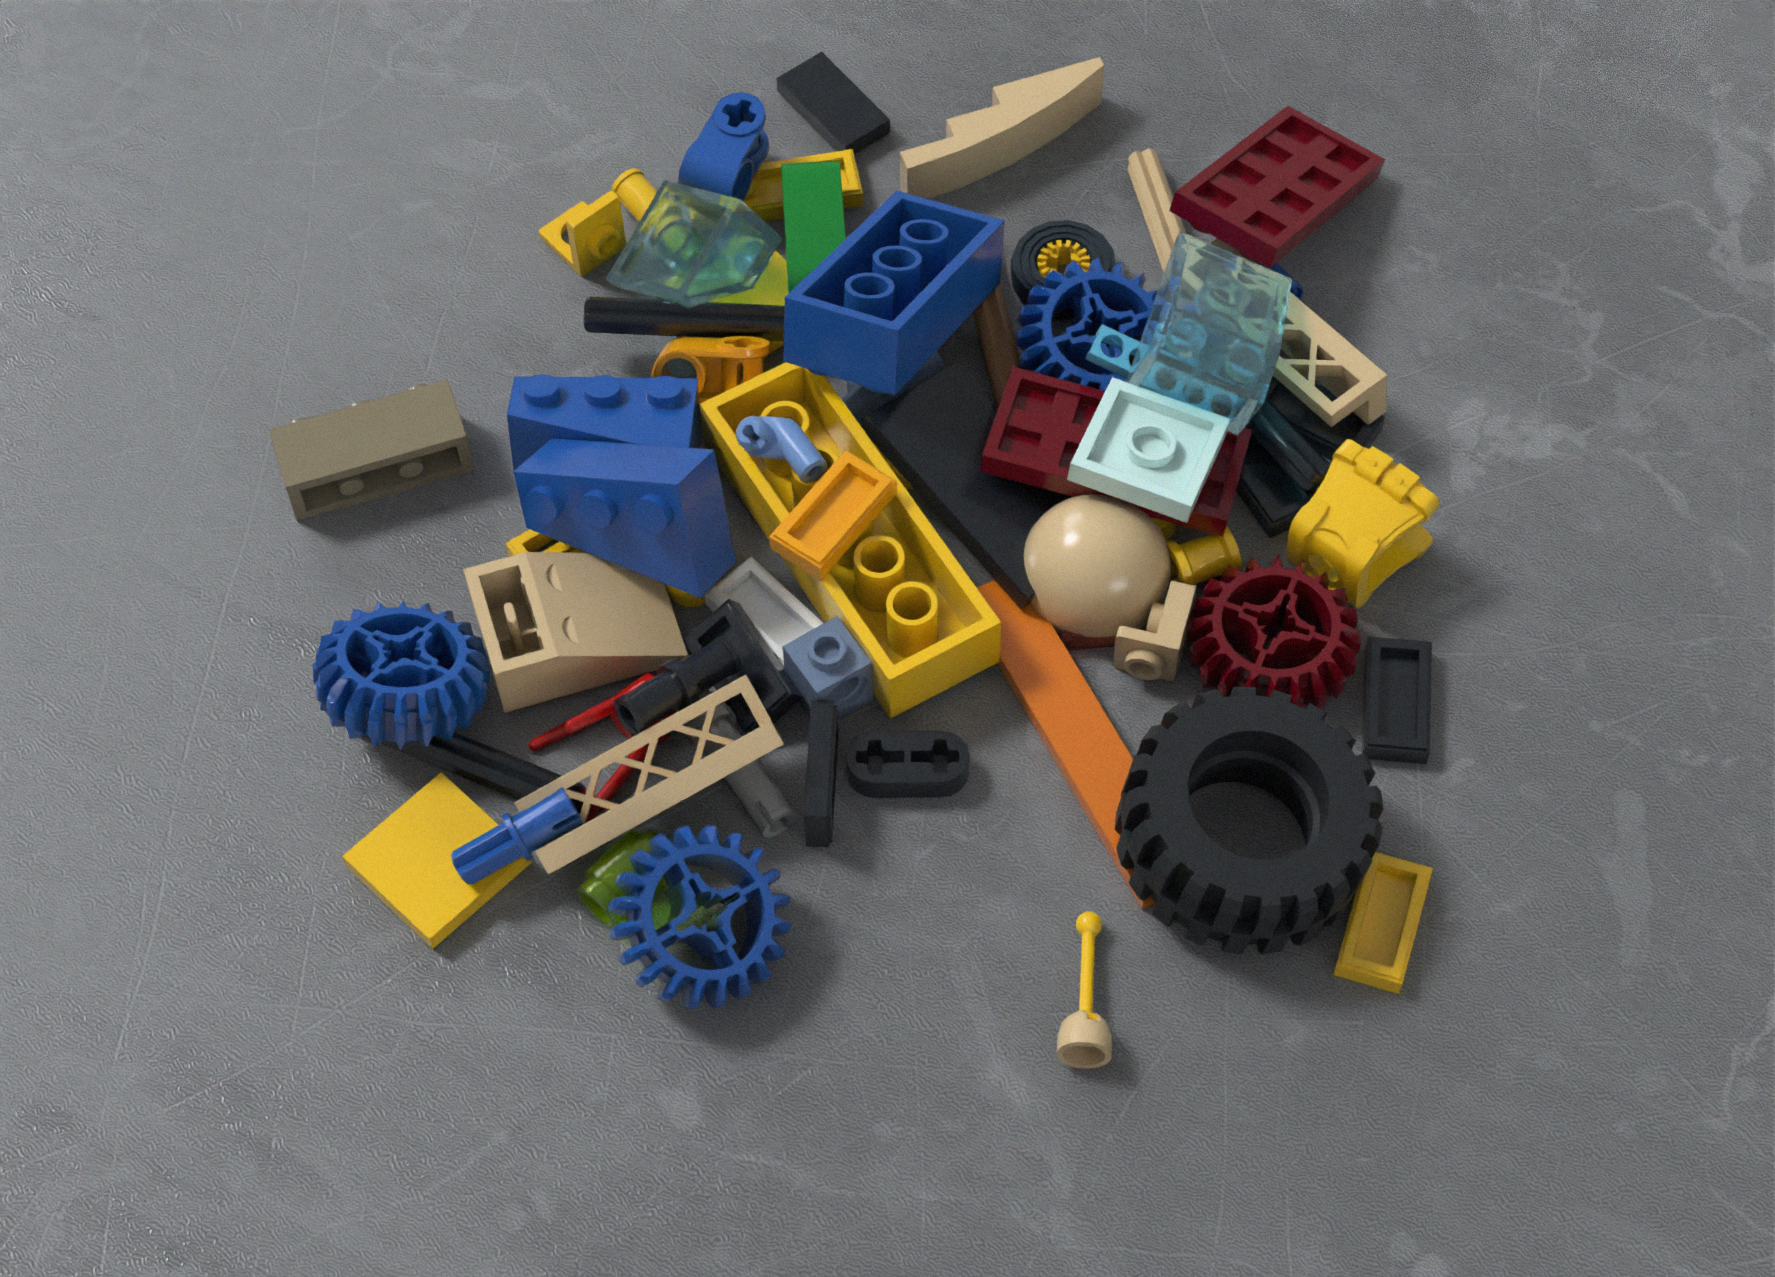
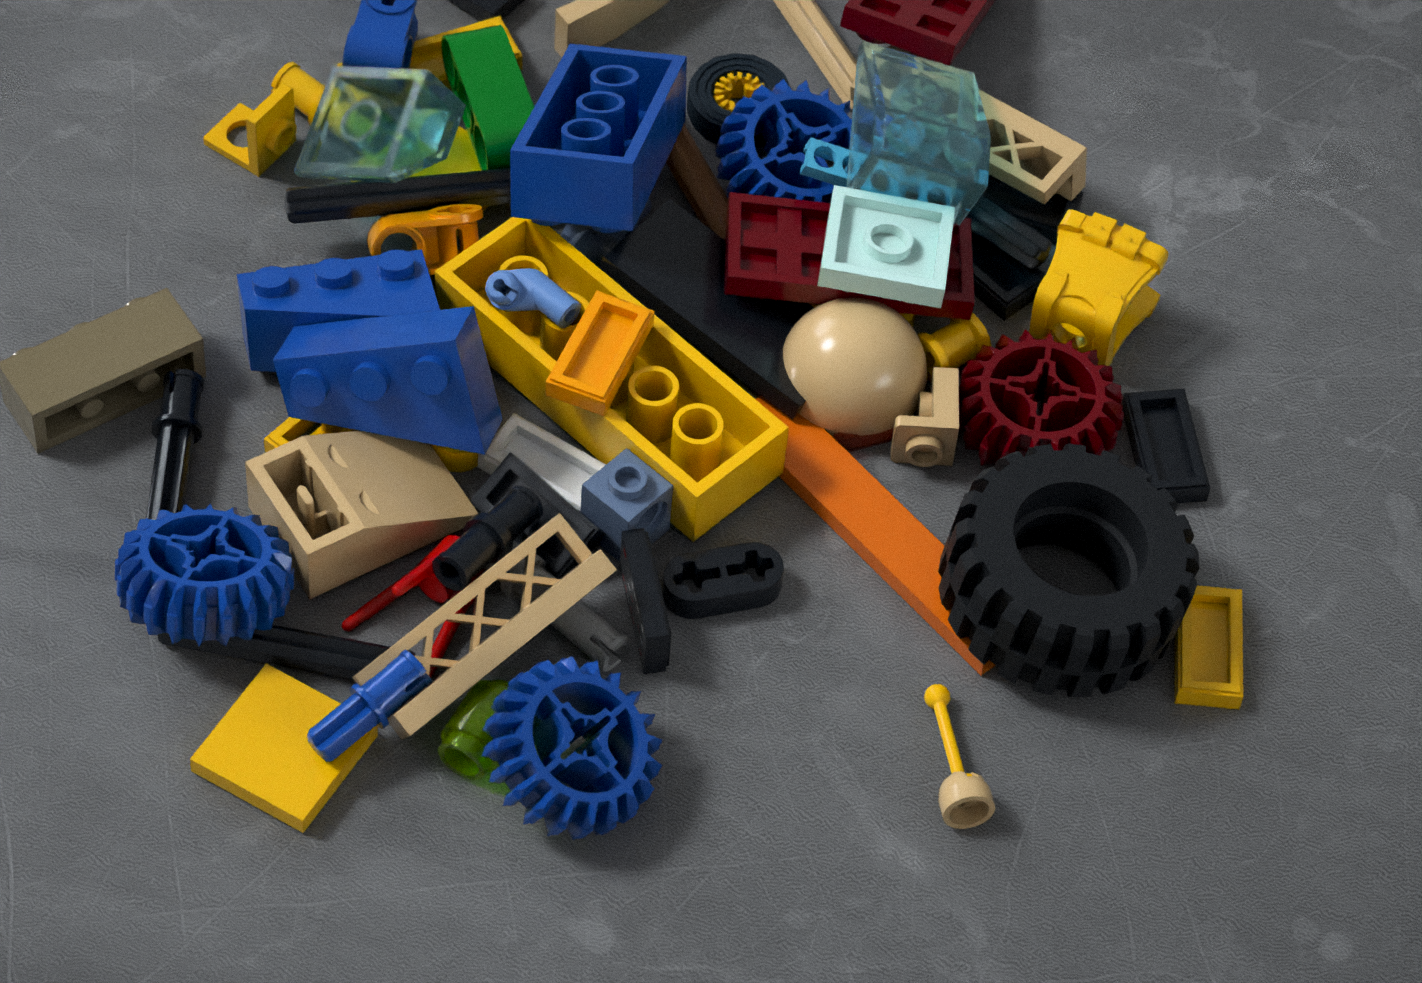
camera: 20 degrees left, 5 degrees down
(424, 524) = (175, 434): none -> black axle

